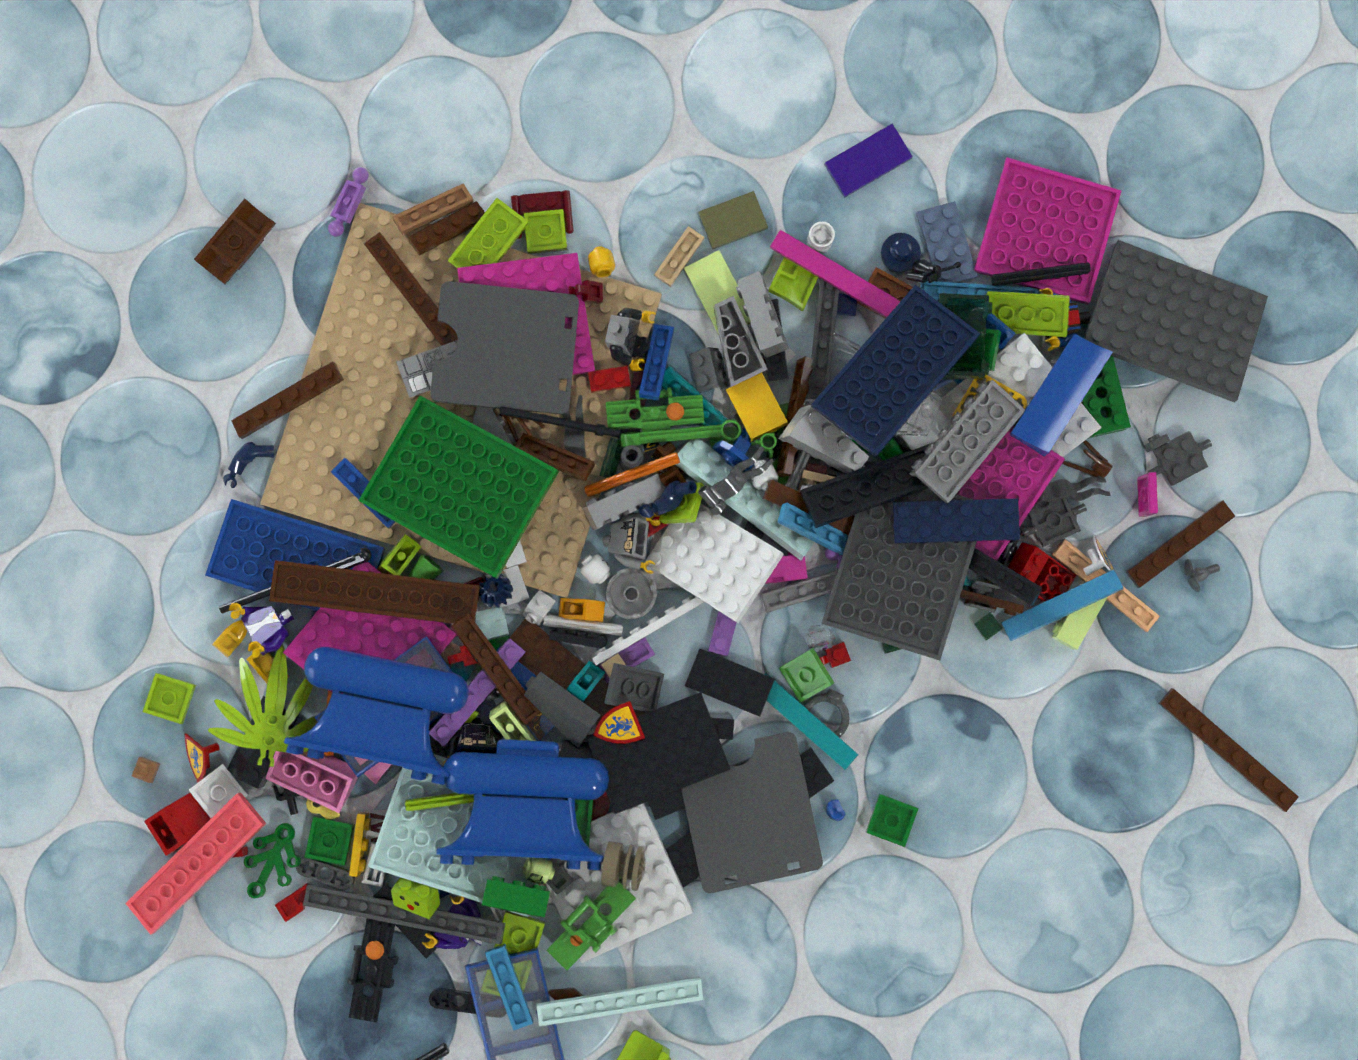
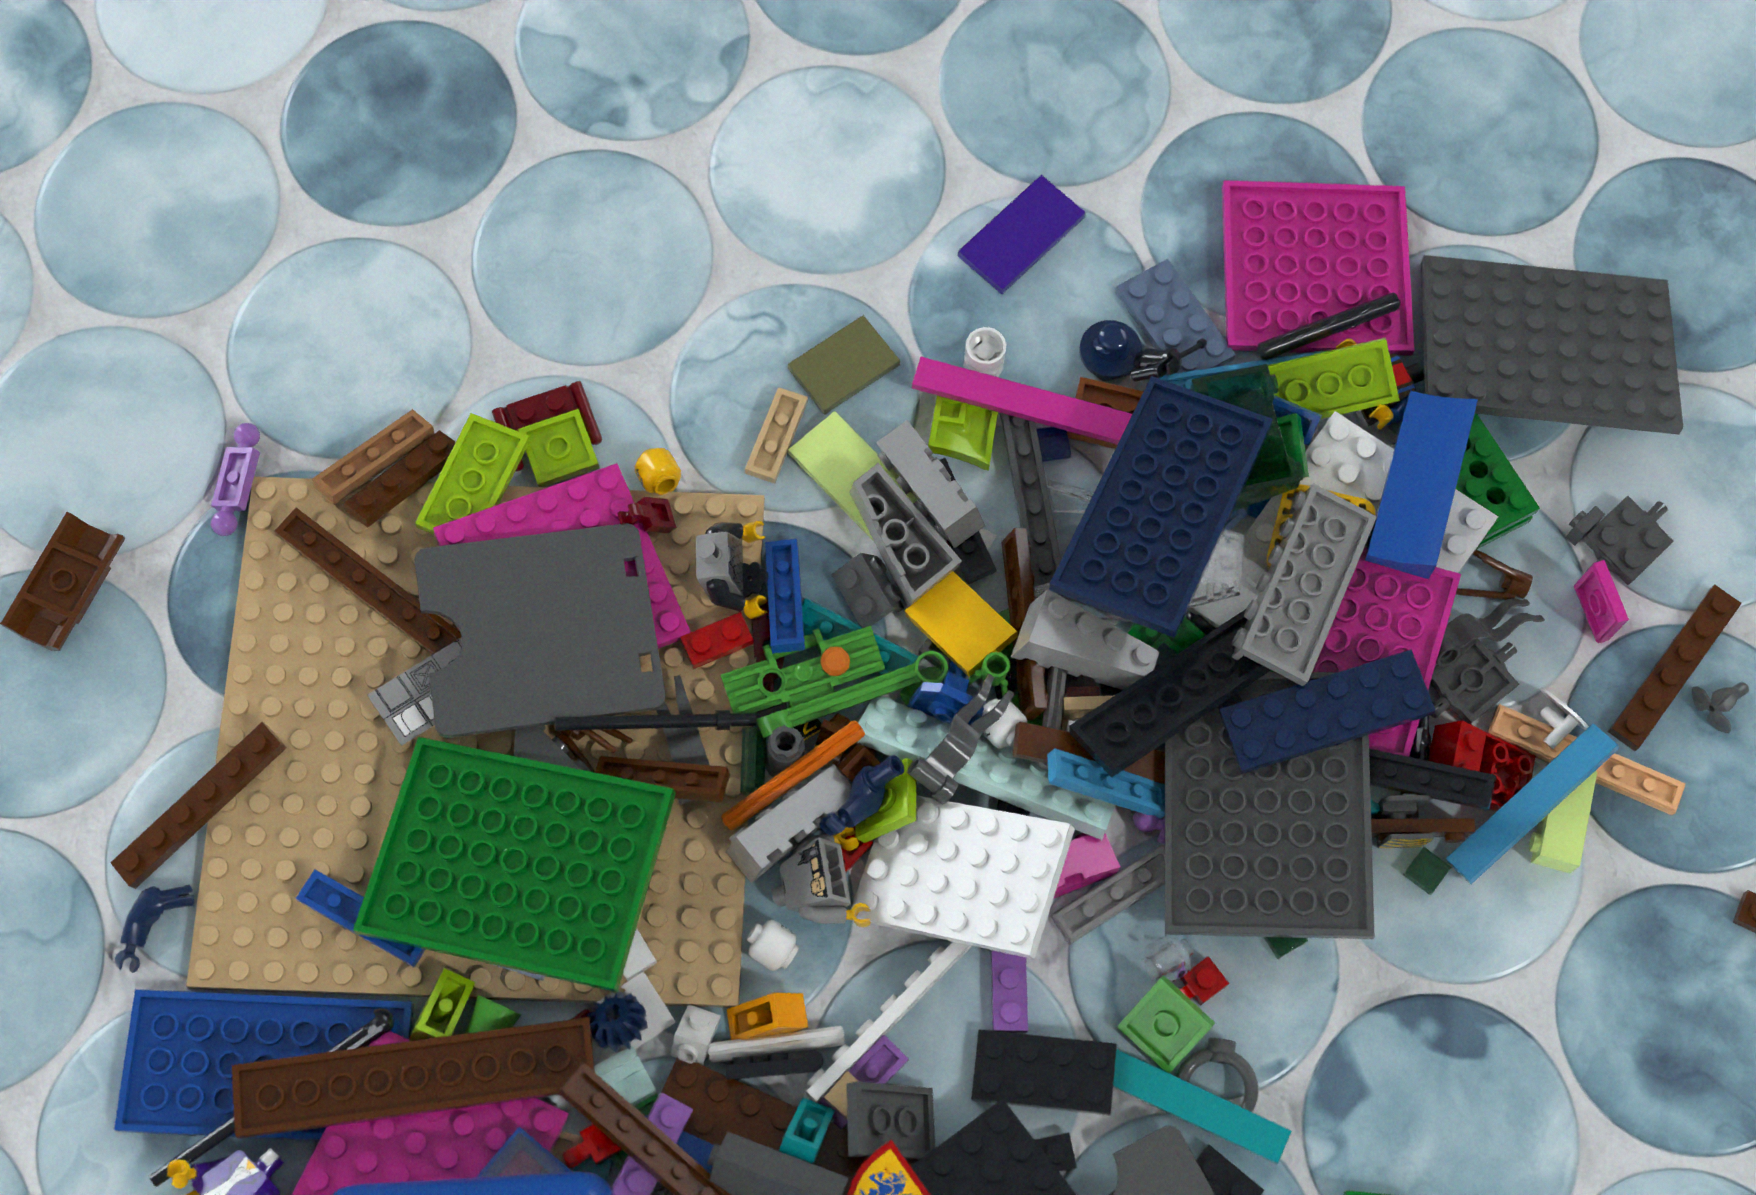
camera: 20 degrees left, 15 degrees down
(625, 580) = (842, 945): light grey plate -> none

